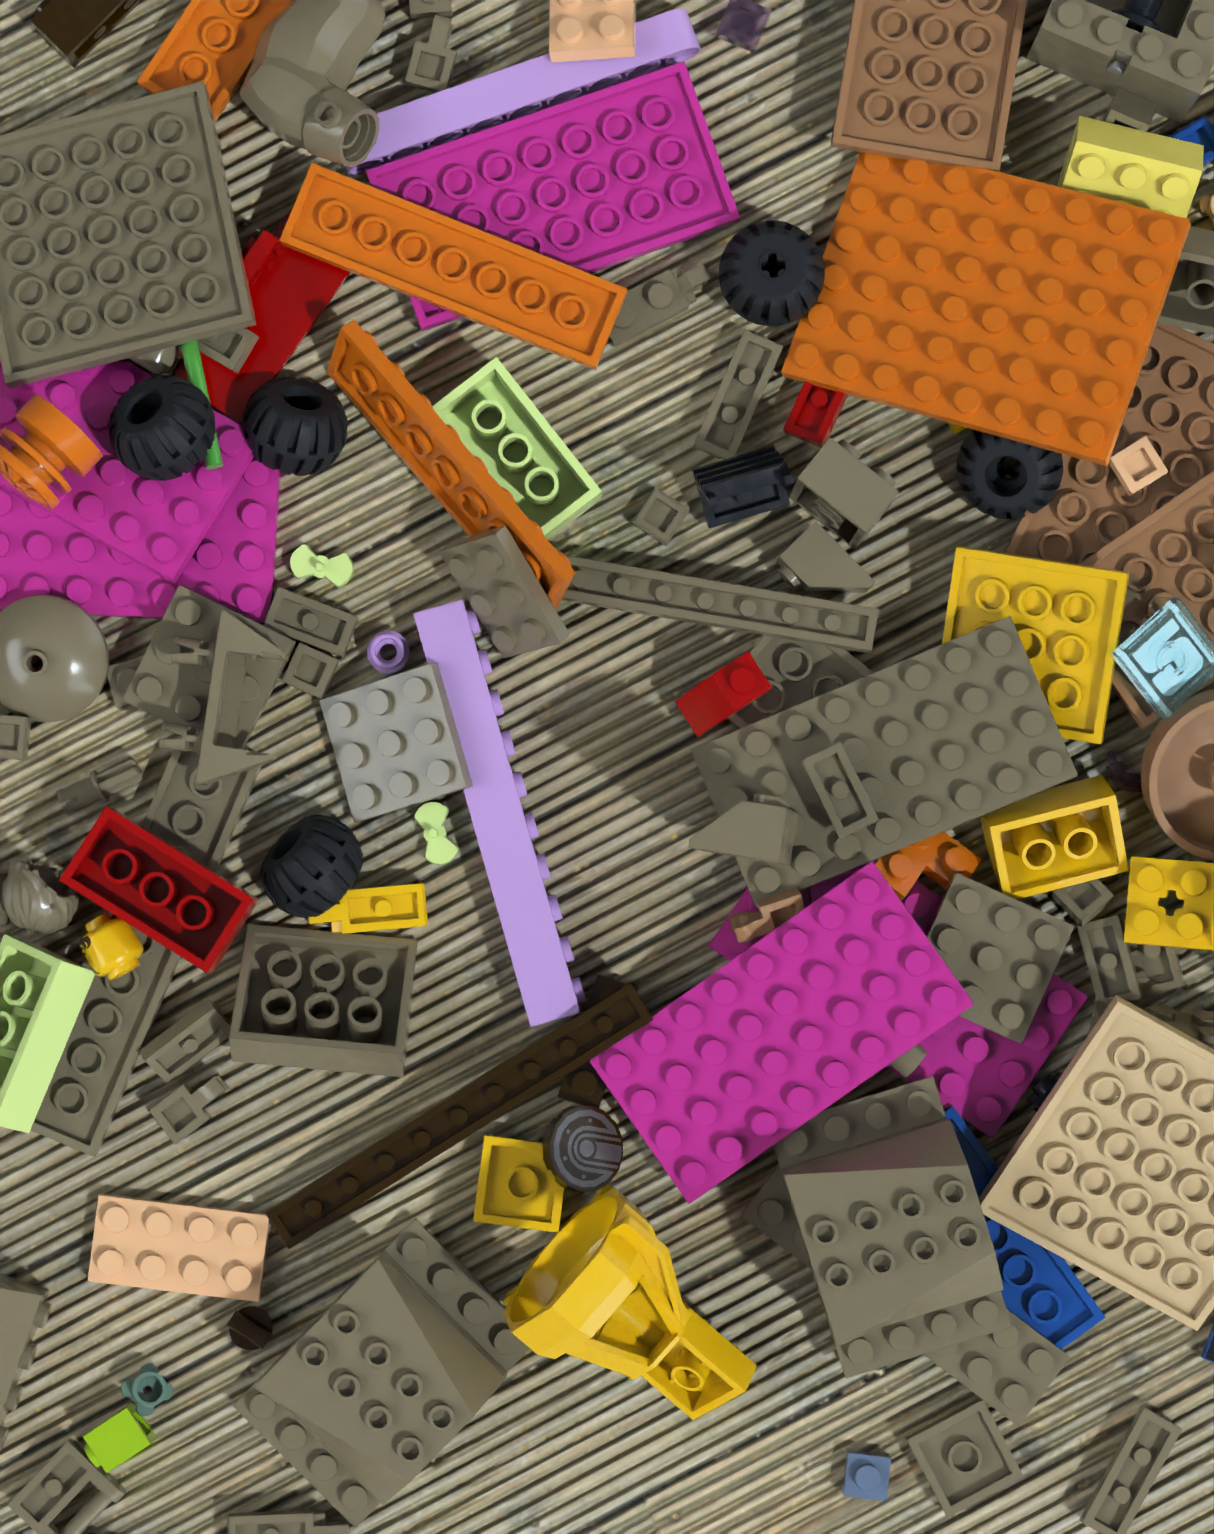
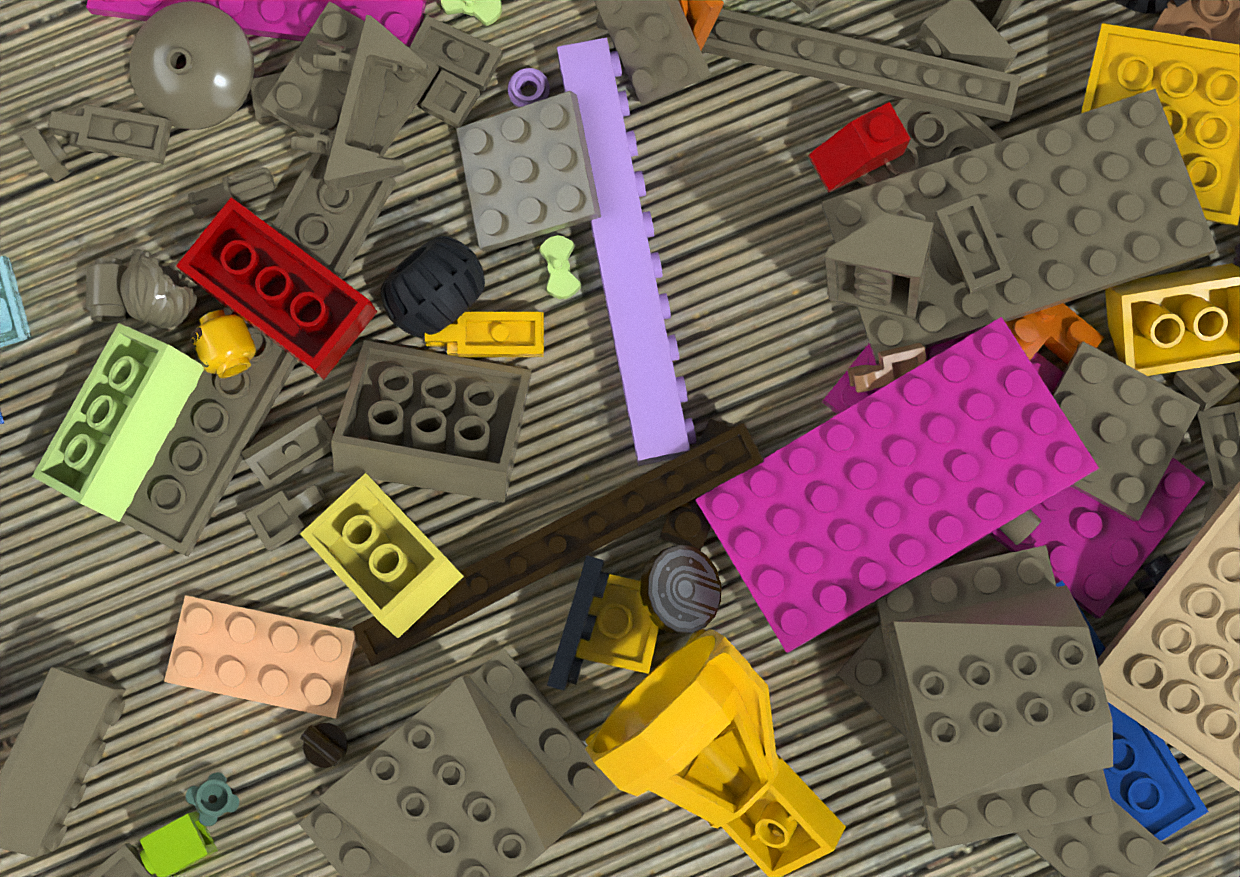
camera: 10 degrees right, 5 degrees down
(288, 1143) = (381, 555): none -> light yellow brick
(486, 1194) = (579, 624): none -> black plate

